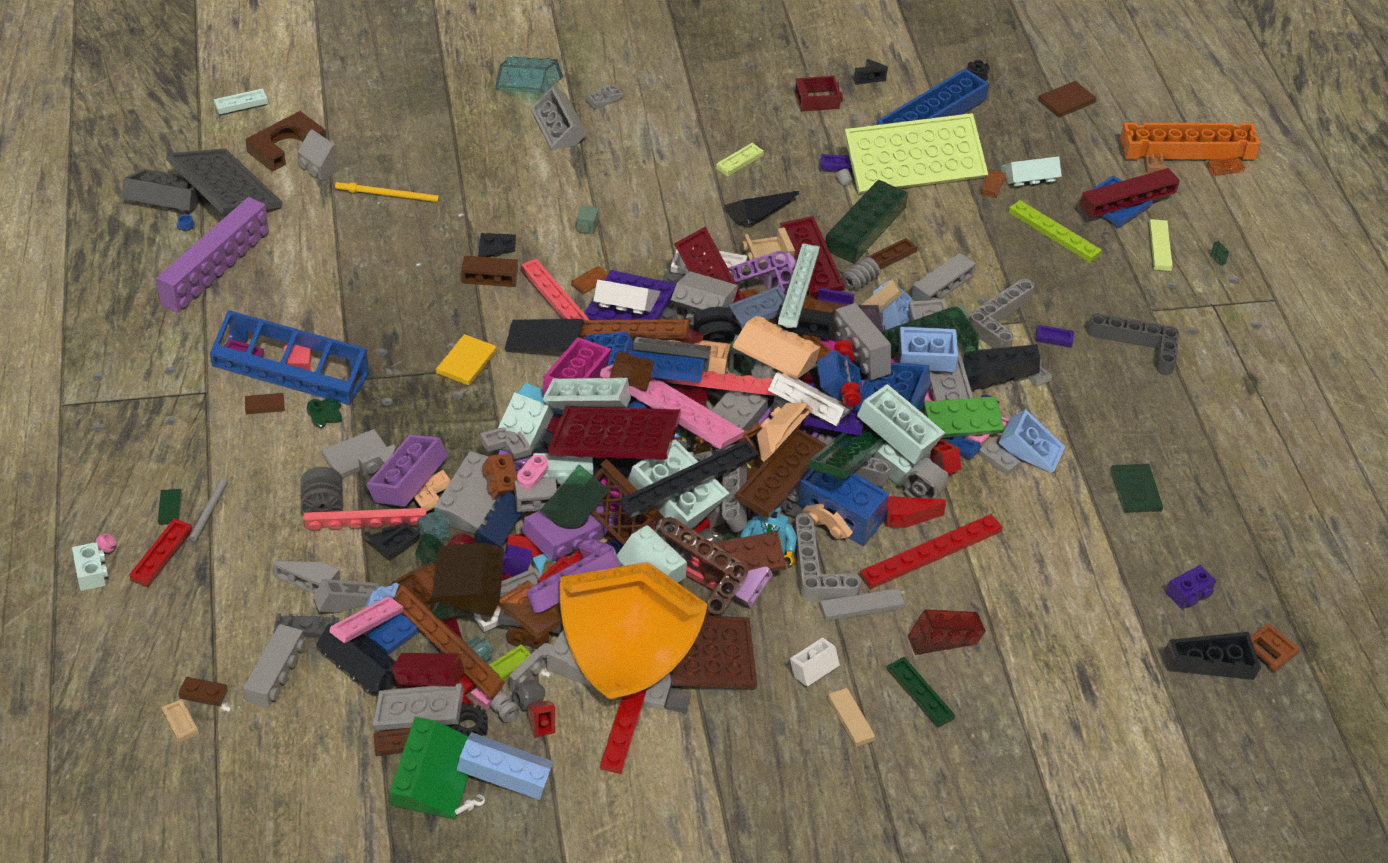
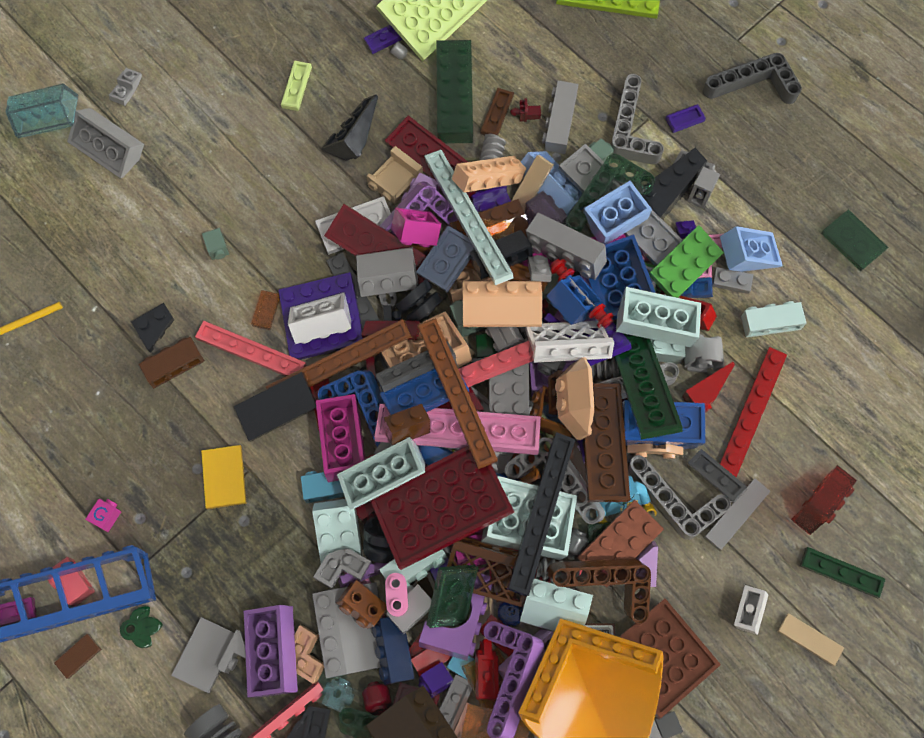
camera: 30 degrees left, 25 degrees up
(358, 331) = (104, 514): none -> dark pink brick
(688, 372) = (457, 394): none -> dark orange tile
(751, 273) = (415, 227): none -> dark pink brick
(825, 341) = (539, 268): none -> light grey plate
(843, 274) = (488, 173): none -> light nougat brick
(864, 563) = (717, 476): none -> dark grey plate
(915, 263) = (526, 112): none -> dark red piece
(1010, 497) = (773, 319): none -> light aqua brick
(1024, 379) = (703, 187): none -> light grey brick

